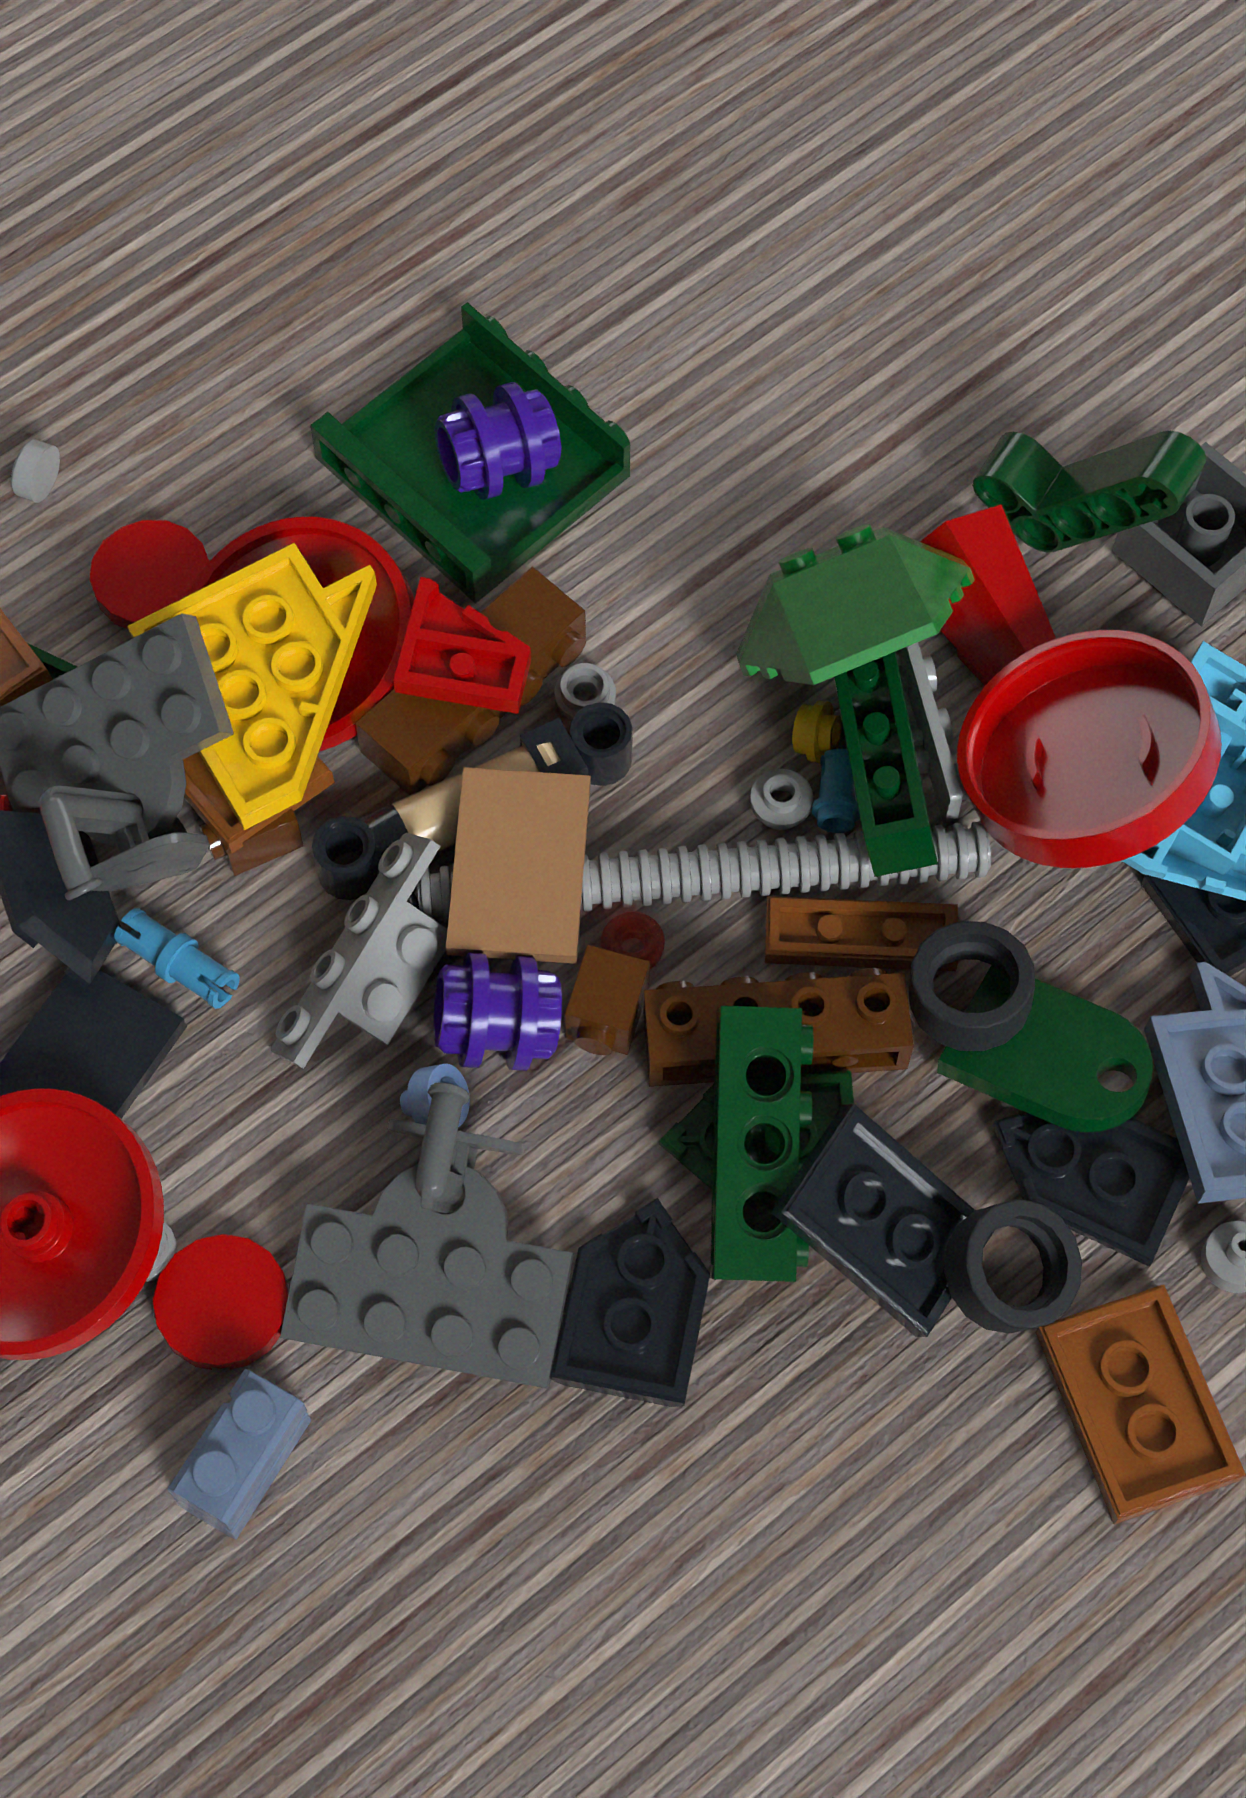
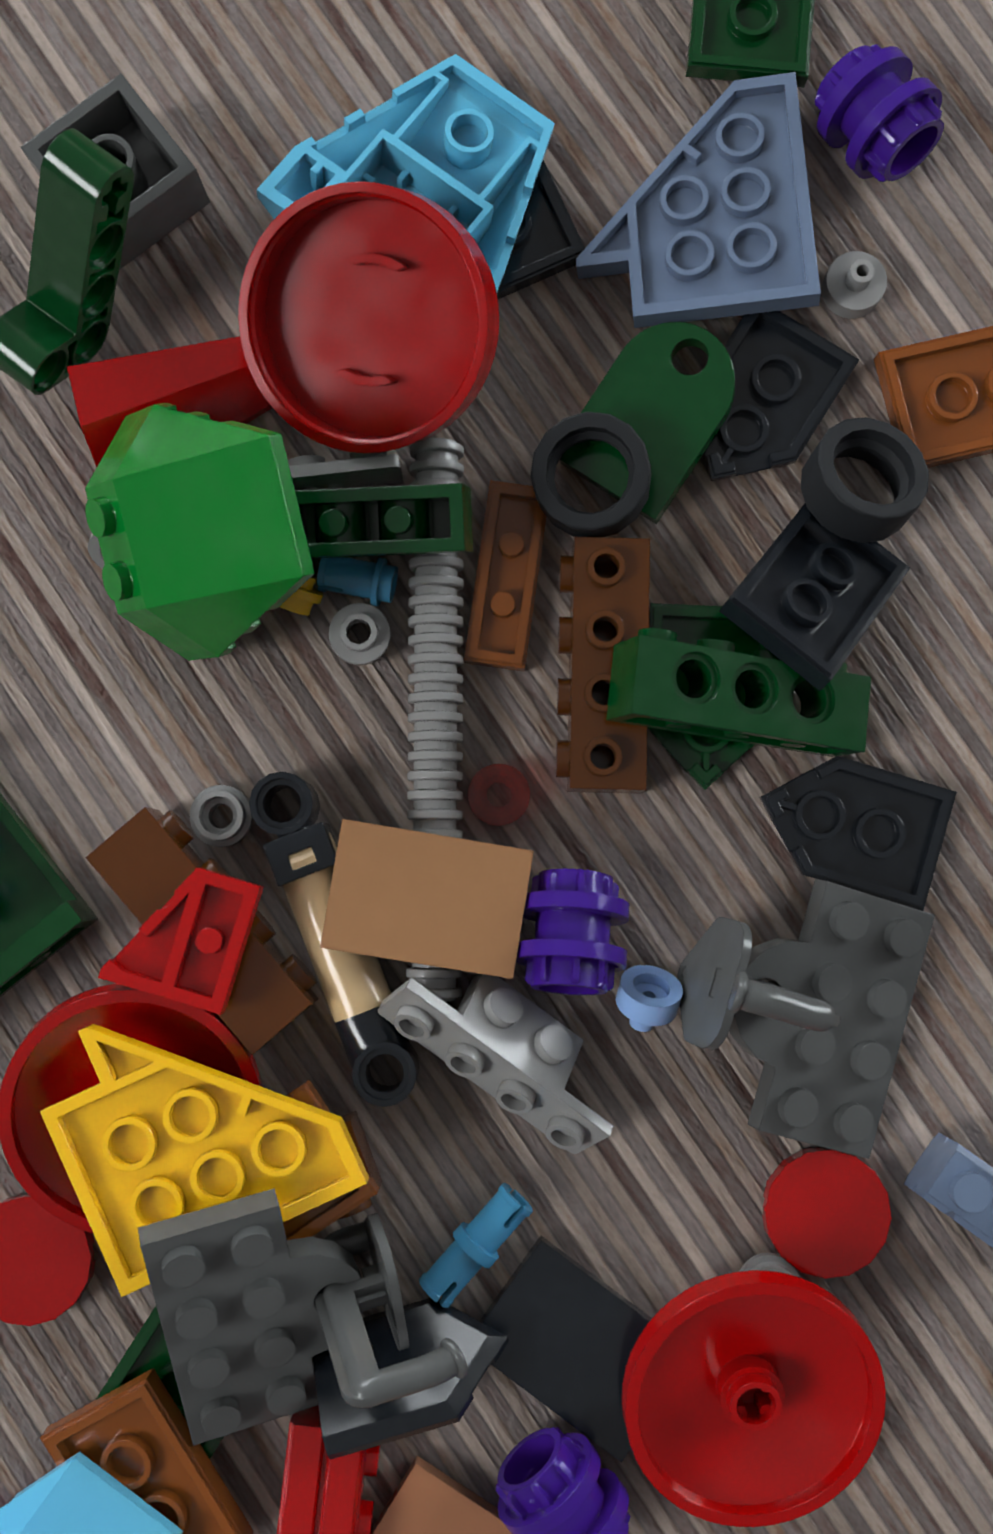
camera: 85 degrees left, 20 degrees up
(606, 1001) = (567, 825): reddish brown brick -> none

